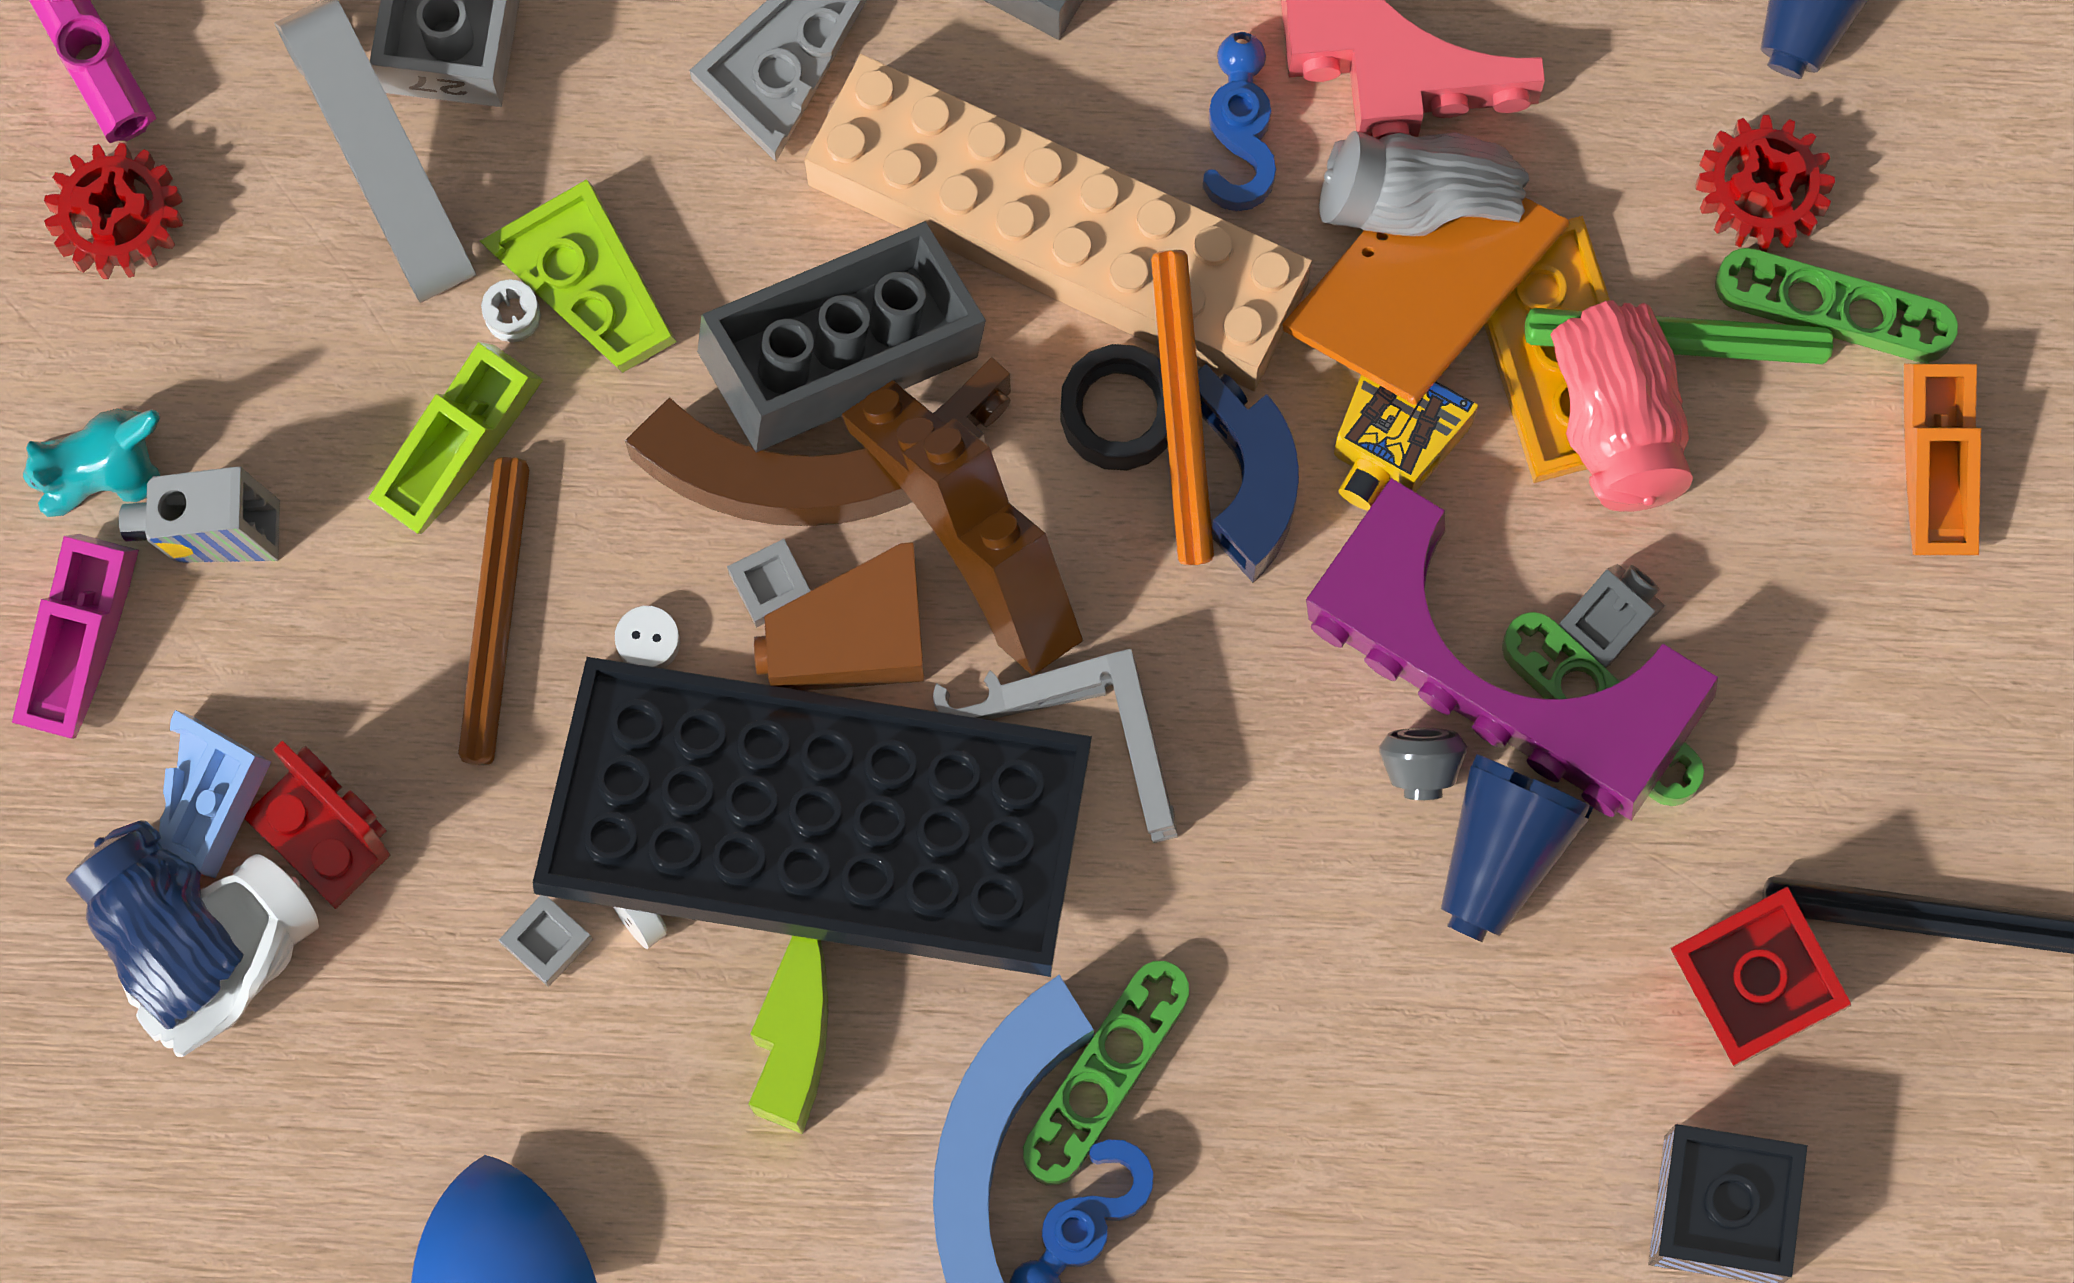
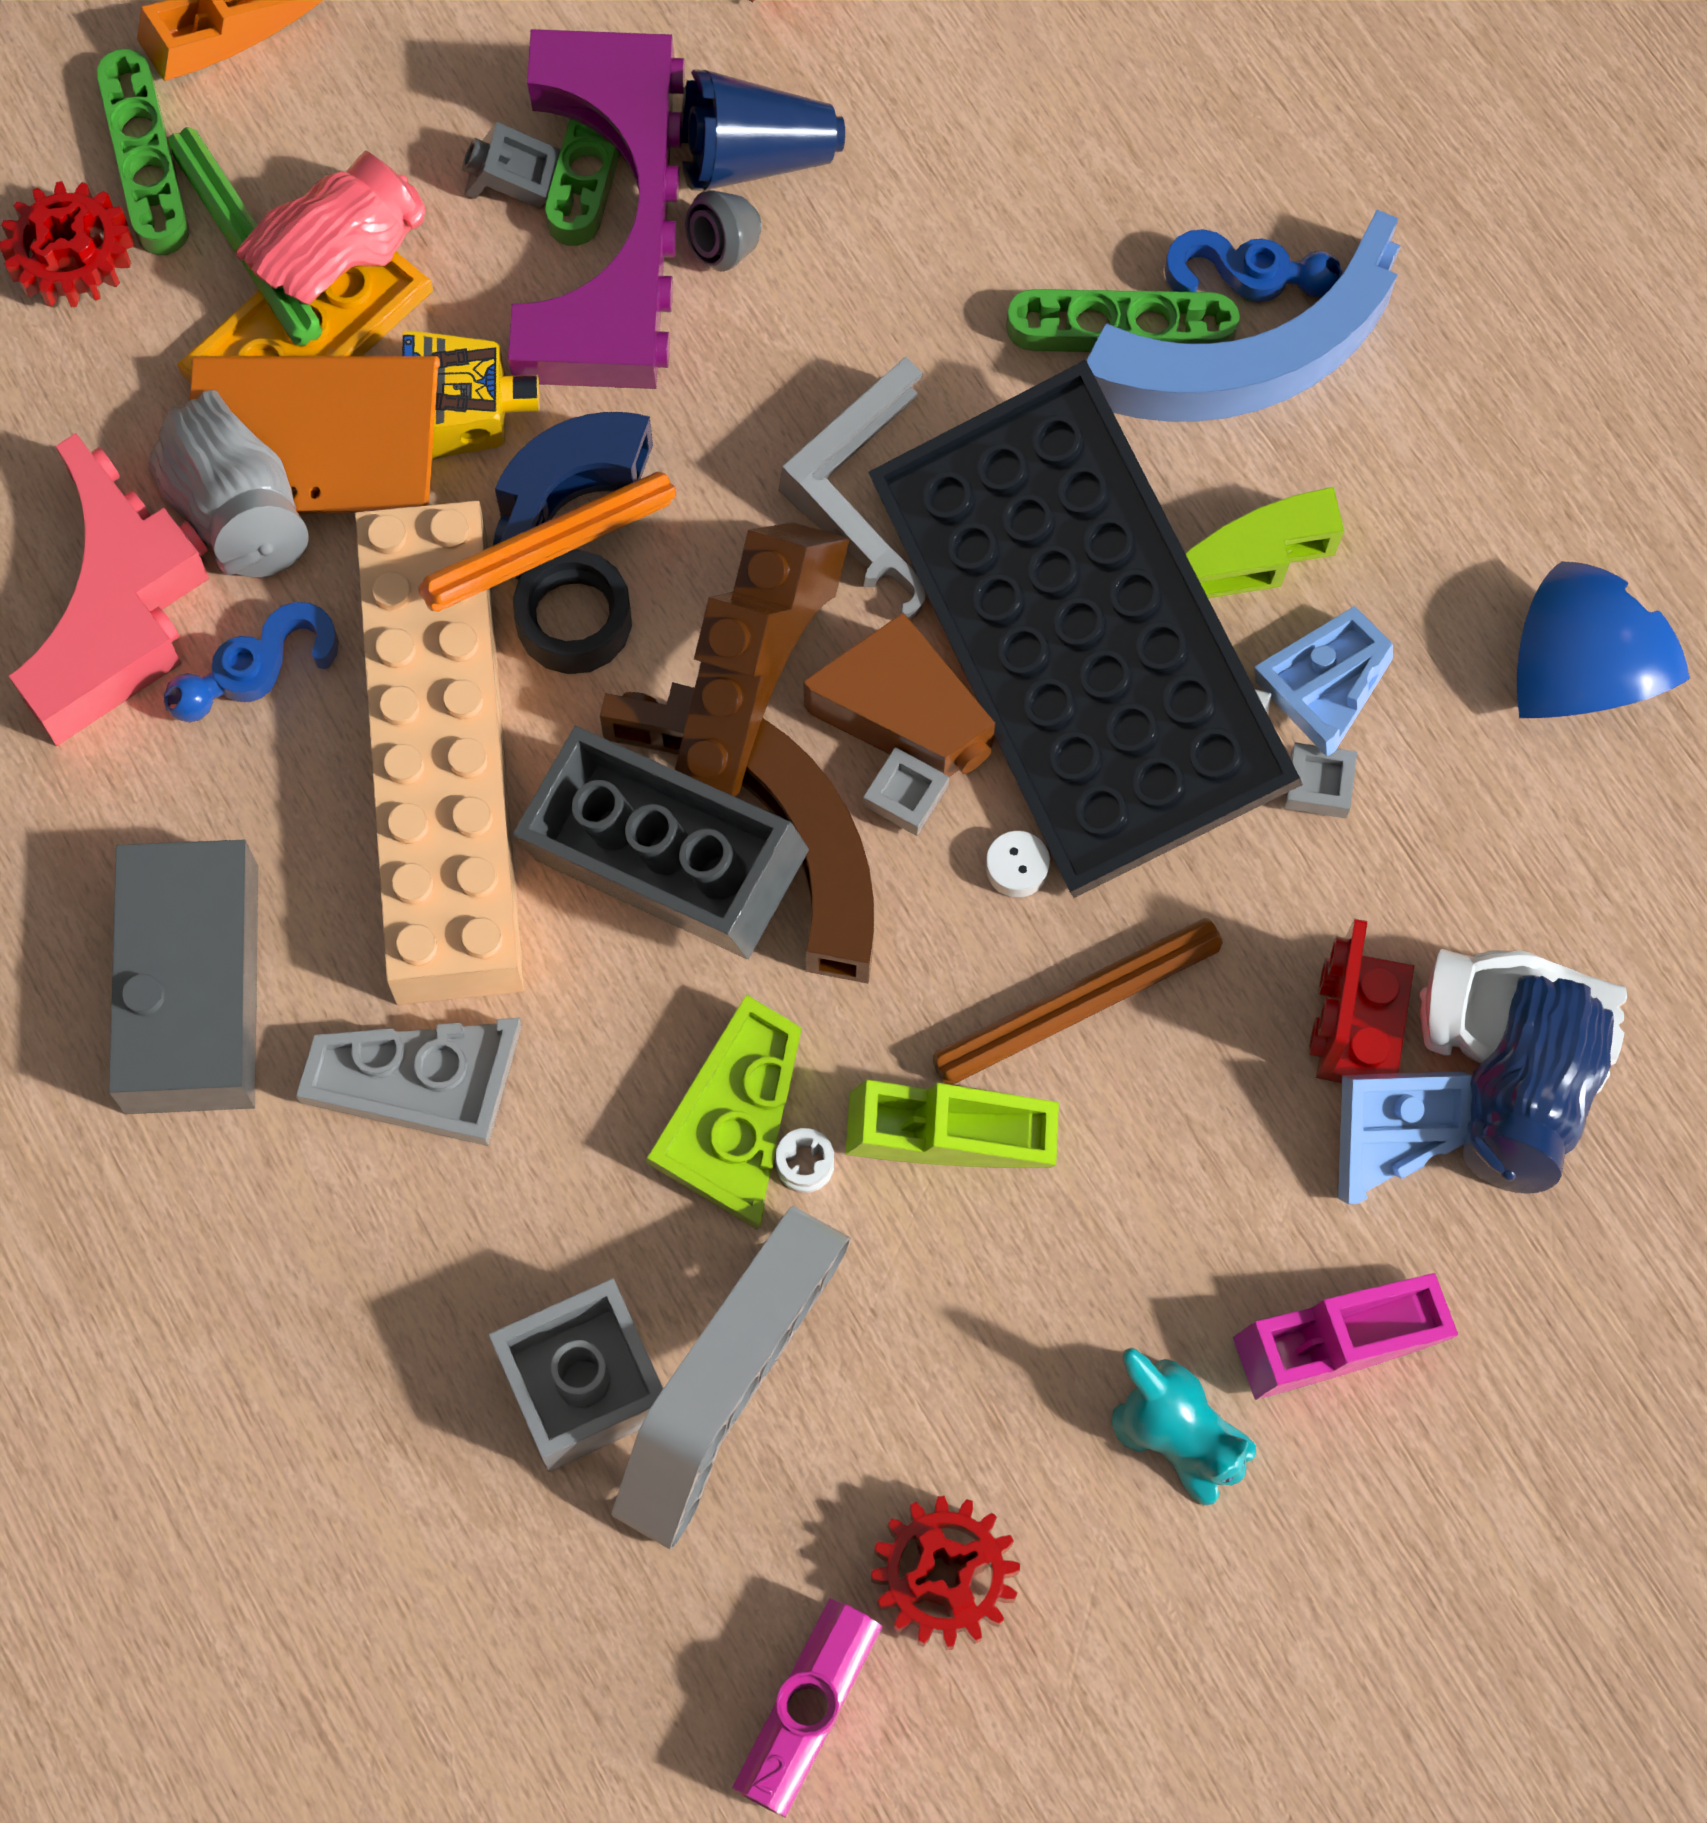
camera: 125 degrees left, 5 degrees down
(206, 517) = (1169, 1255): light grey torso -> none
(631, 1008) = (1327, 676): none -> light blue wing

